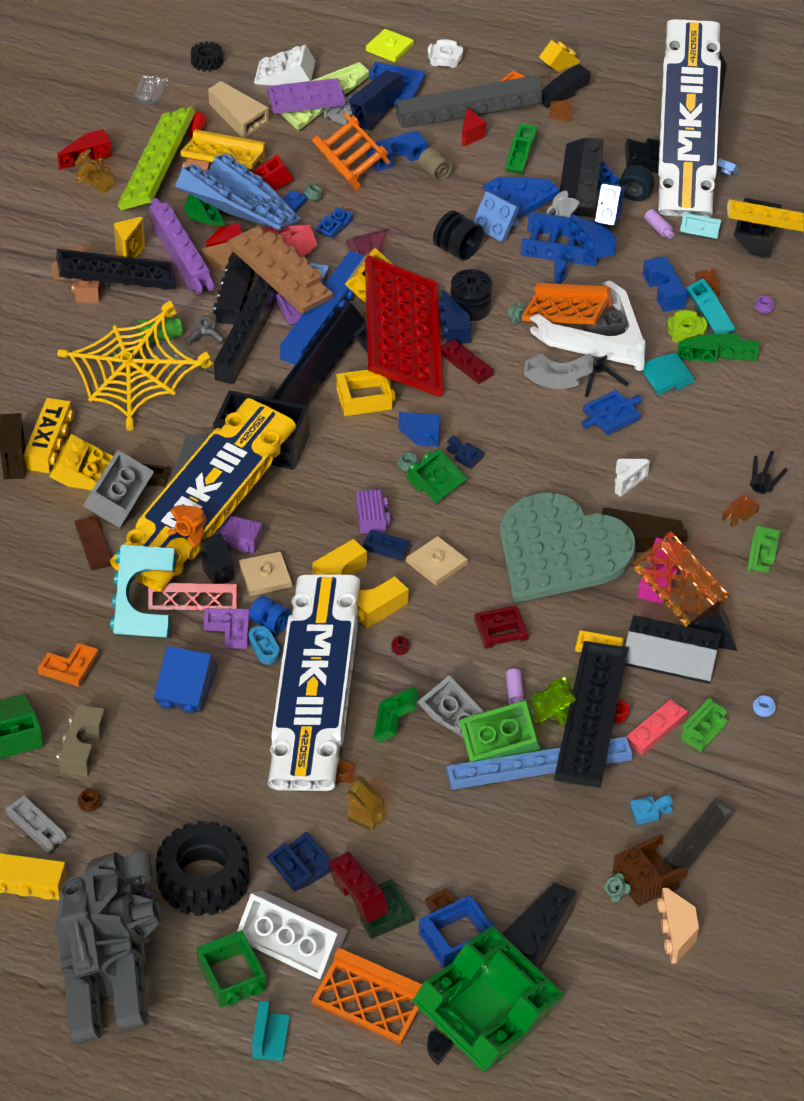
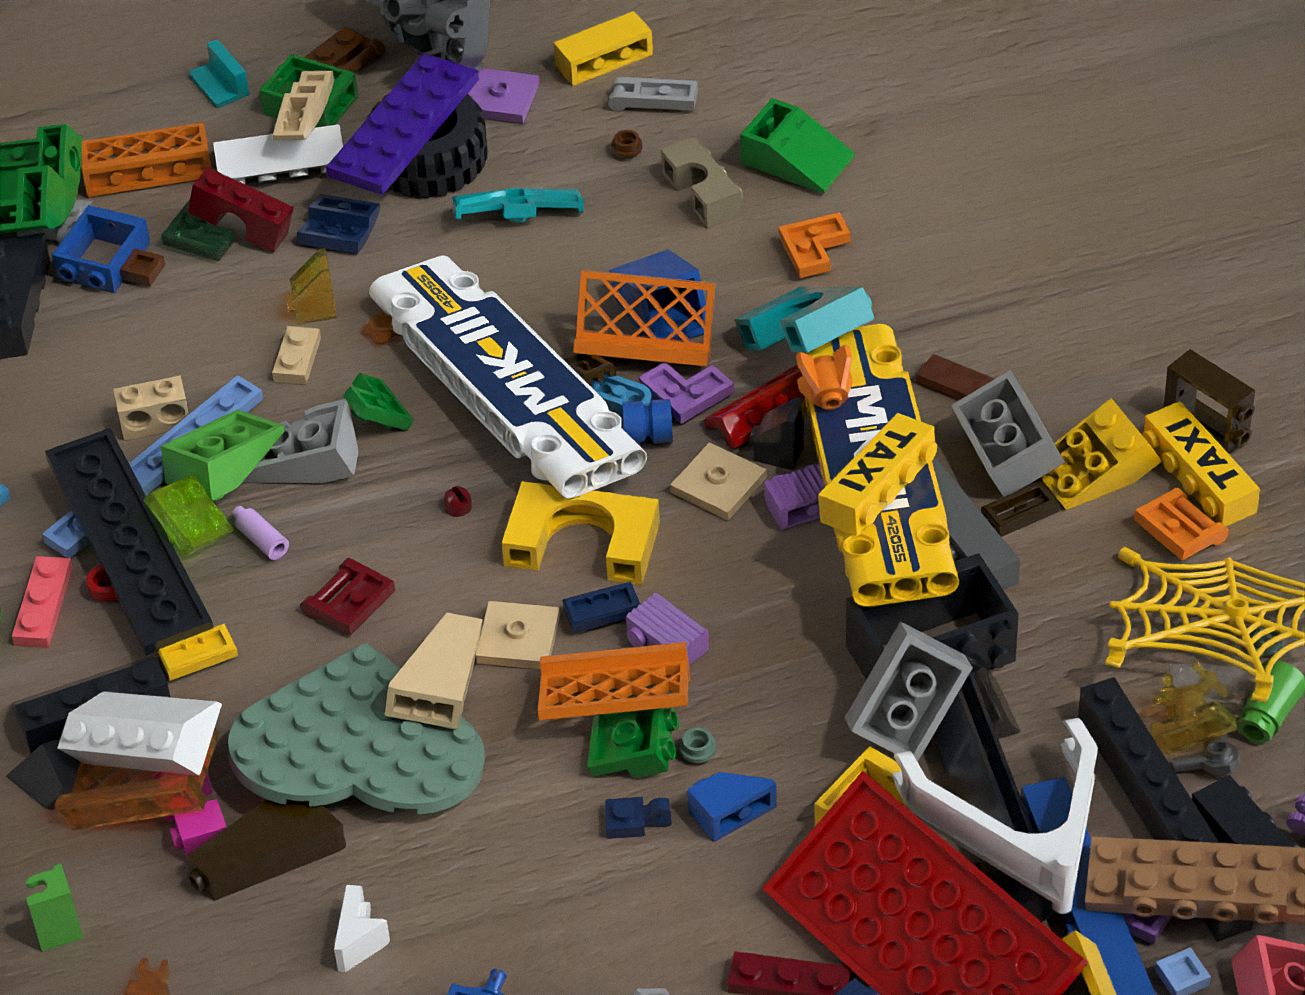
camera: 145 degrees right, 0 degrees up
(98, 418) = (1179, 524): none -> orange plate
(178, 1003) = (347, 50): none -> reddish brown plate
(193, 798) = (517, 202): none -> teal plate
(203, 332) = (1195, 719): none -> clear yellow piece
(220, 854) = (402, 123): none -> dark purple plate
(223, 654) = (650, 346): none -> orange fence
(227, 454) = (877, 474): none -> yellow brick
(260, 920) = (303, 106): none -> tan slope
(264, 682) = (584, 369): none -> dark brown tile
(312, 392) = (908, 692): none -> light grey brick
(331, 296) = (1039, 861): none -> white piece
(404, 788) = (296, 355): none -> tan plate
(412, 502) = (603, 670): none -> orange fence
(496, 545) = (437, 675): none -> tan slope
(514, 794) = (151, 407): none -> tan brick
(671, 575) = (141, 732): none -> white slope

